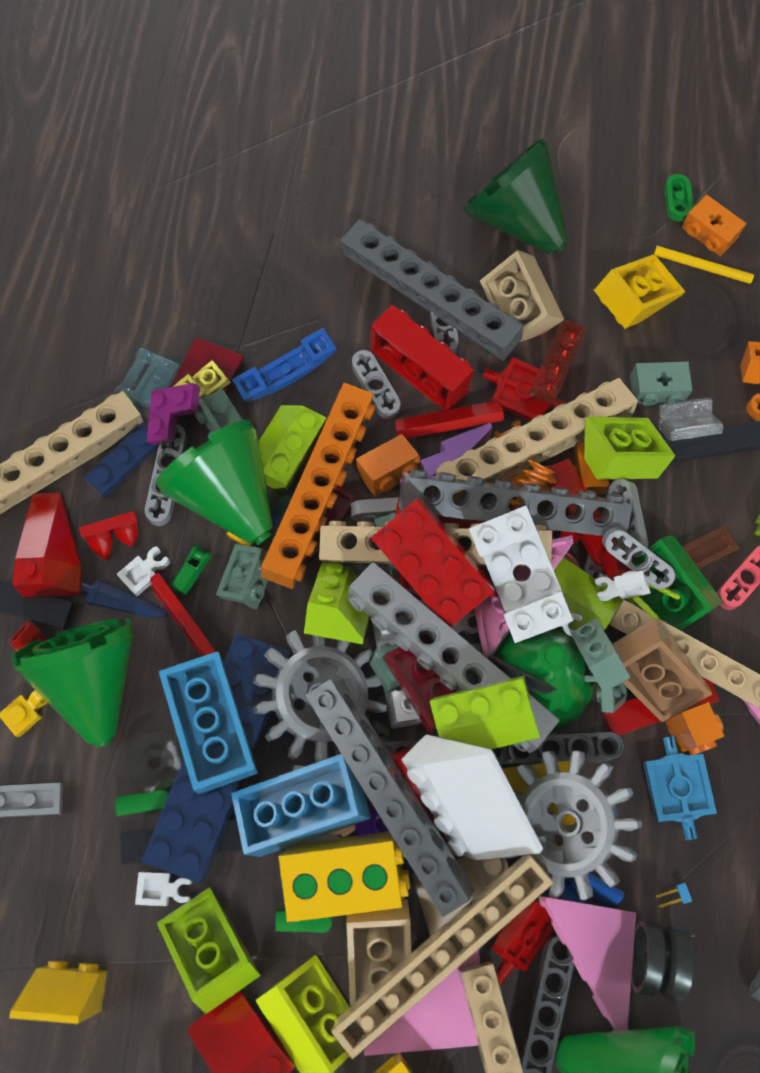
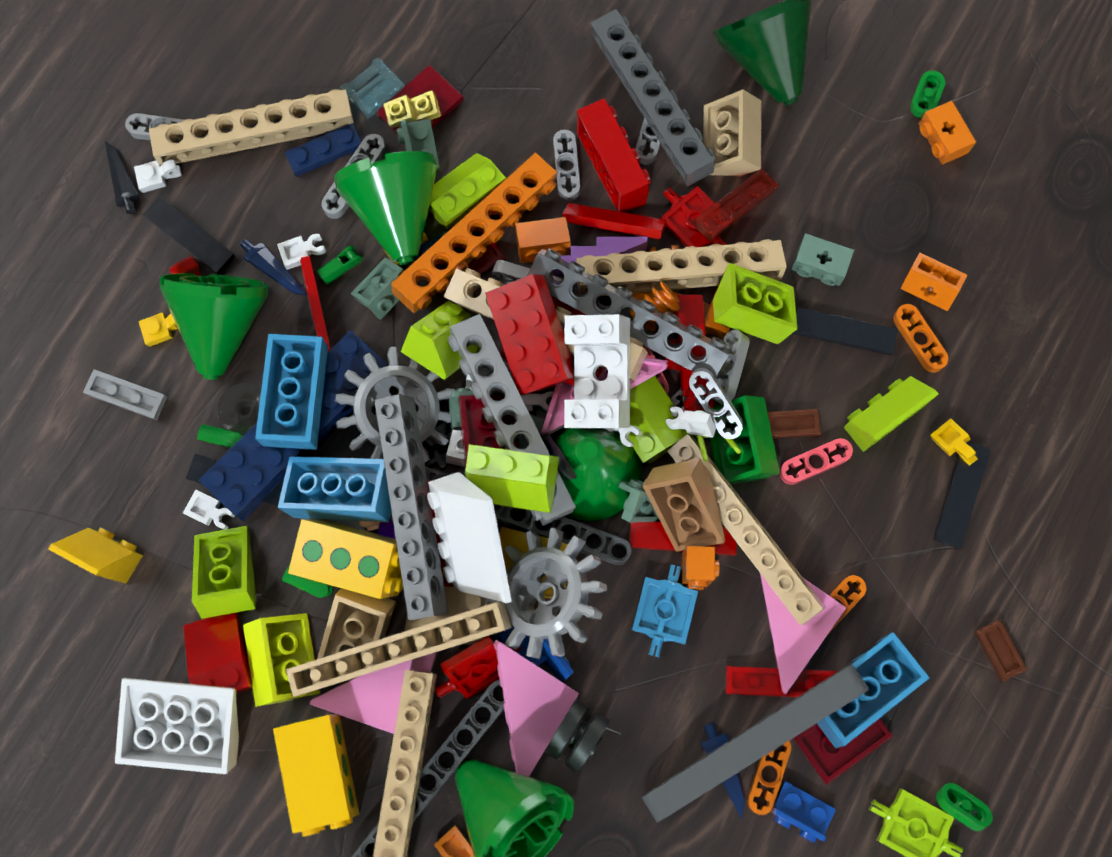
camera: 30 degrees right, 5 degrees up
(47, 552) = (228, 203): red wedge -> none
(99, 534) = (277, 205): red tile -> none
(166, 406) = (376, 116): magenta plate -> none
(286, 369) = (493, 123): blue slope -> none
(600, 655) = (636, 468): sand green brick -> none
(638, 290) = (845, 167): yellow slope -> none
(683, 893) = (627, 695): dark azure piece -> none
(688, 419) = (831, 302): clear bracket -> none
(704, 264) = (920, 166): yellow bar -> none

